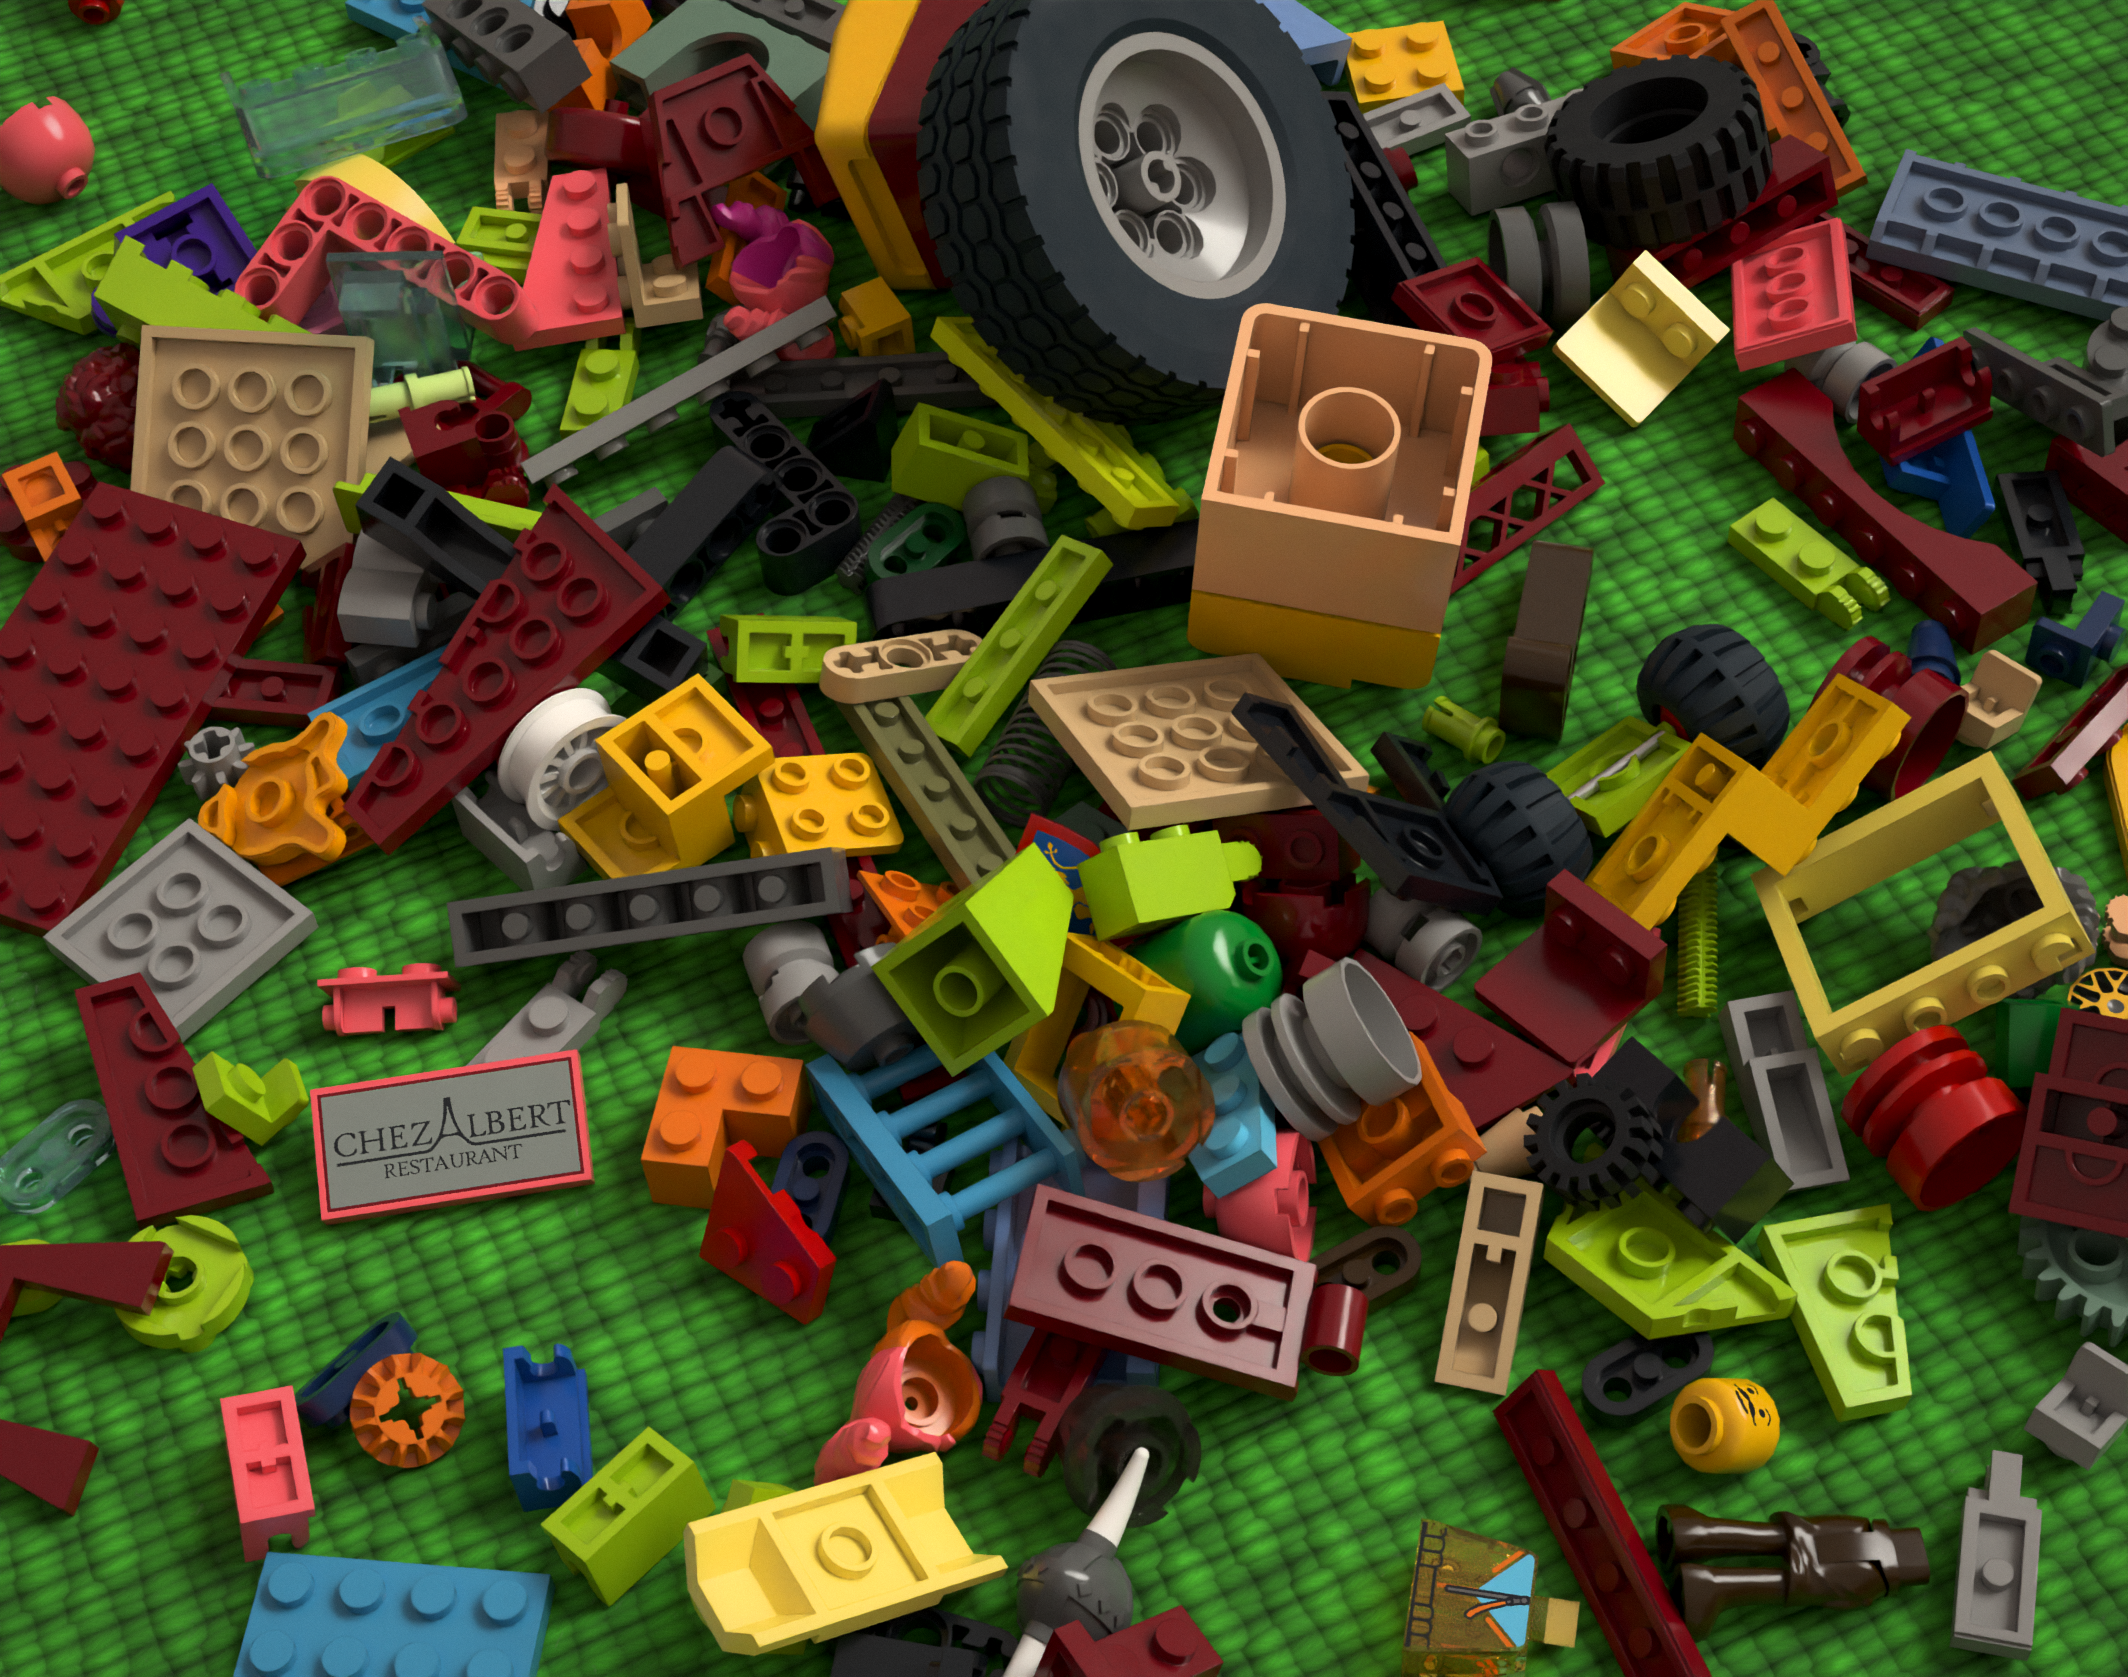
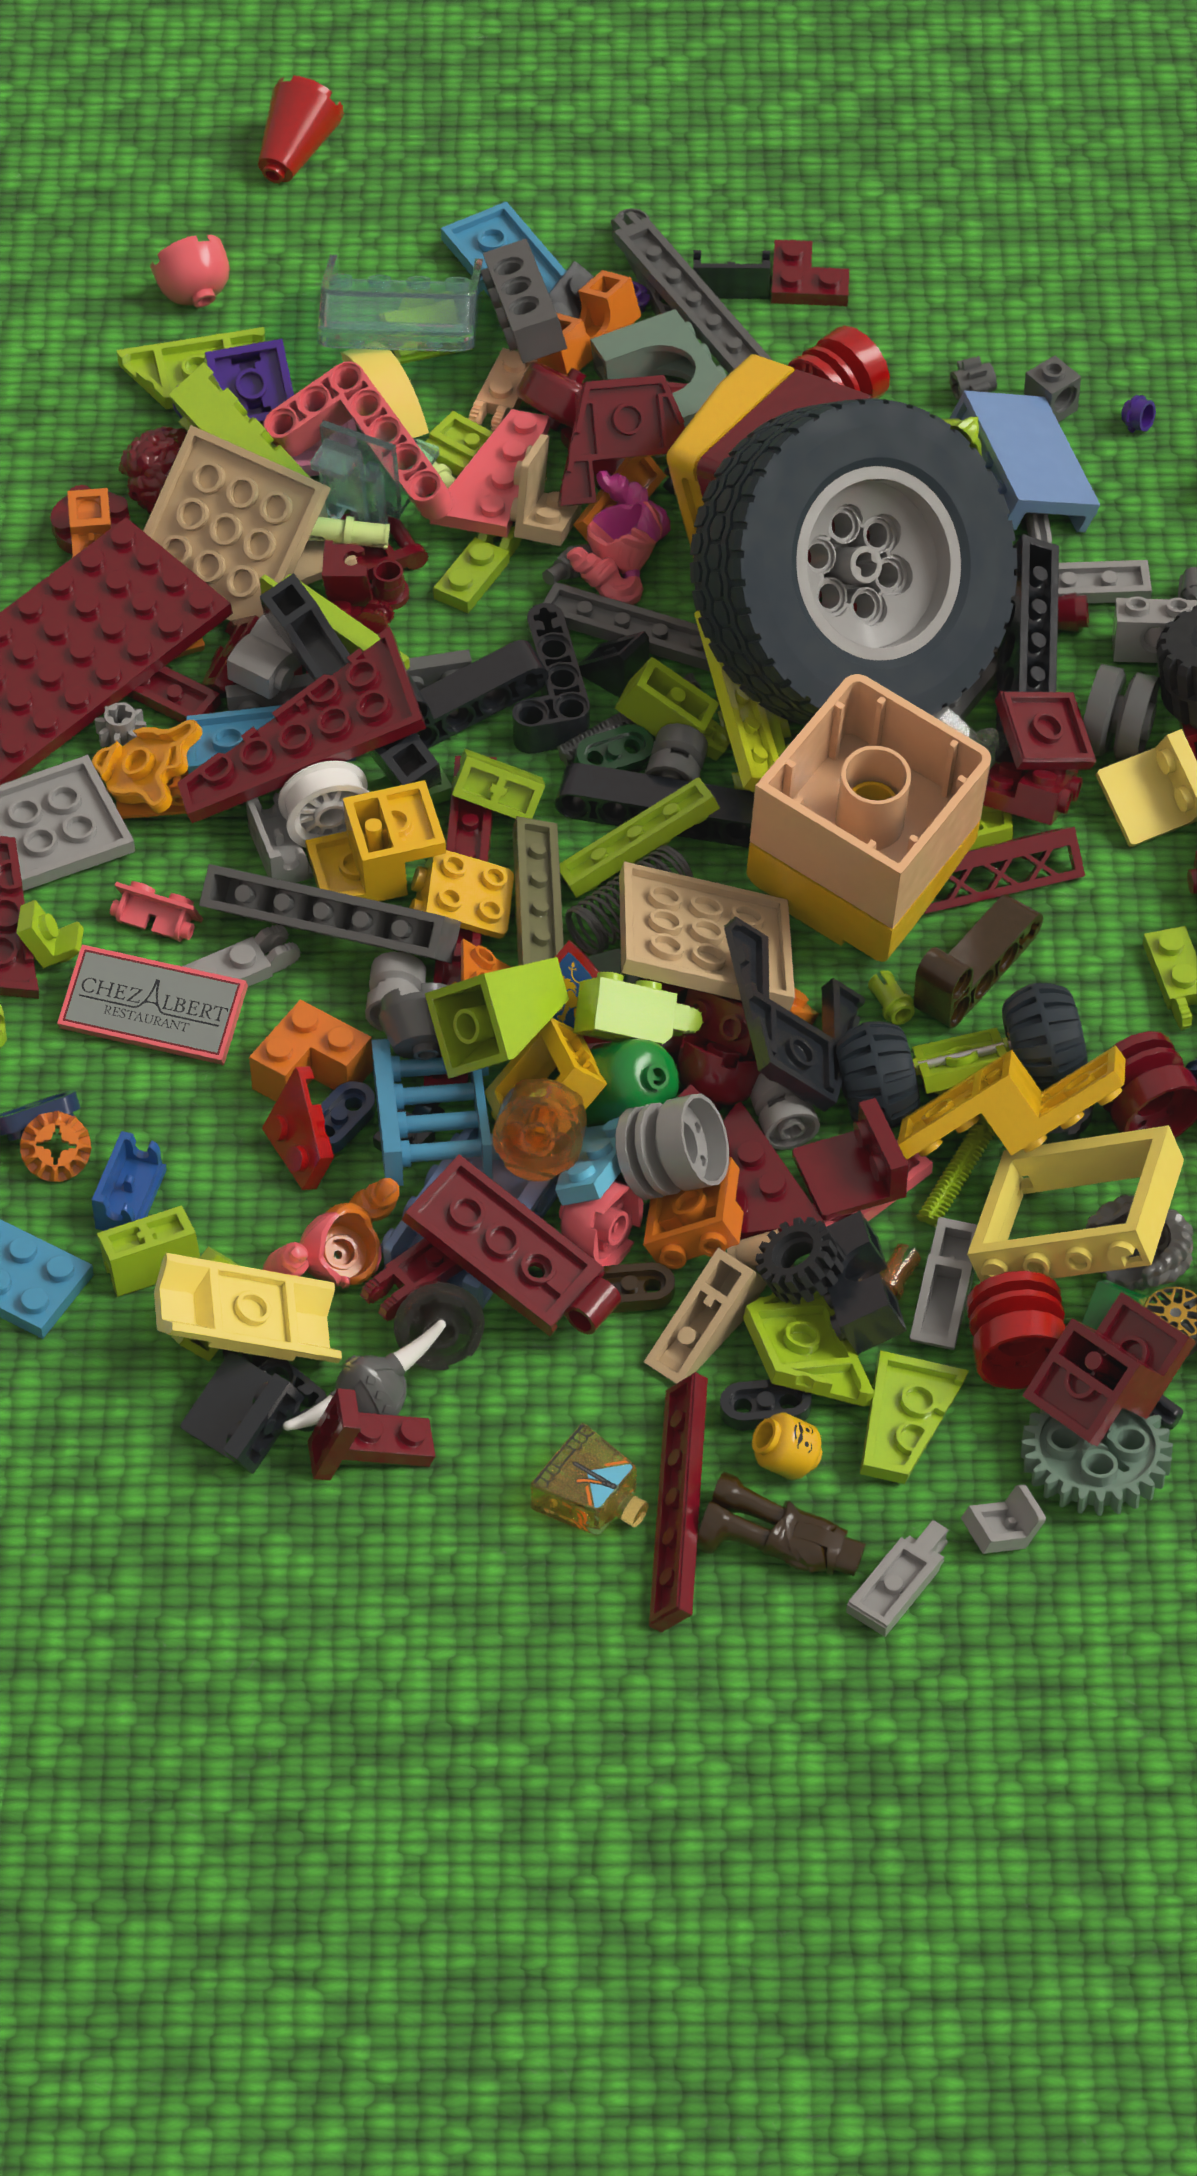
camera: 20 degrees right, 0 degrees up
(659, 406) = (499, 596): light grey plate -> none
(869, 670) = (526, 815): tan beam -> none
(875, 320) = (671, 589): yellow brick -> none
(1400, 63) = (1132, 533): yellow plate -> none

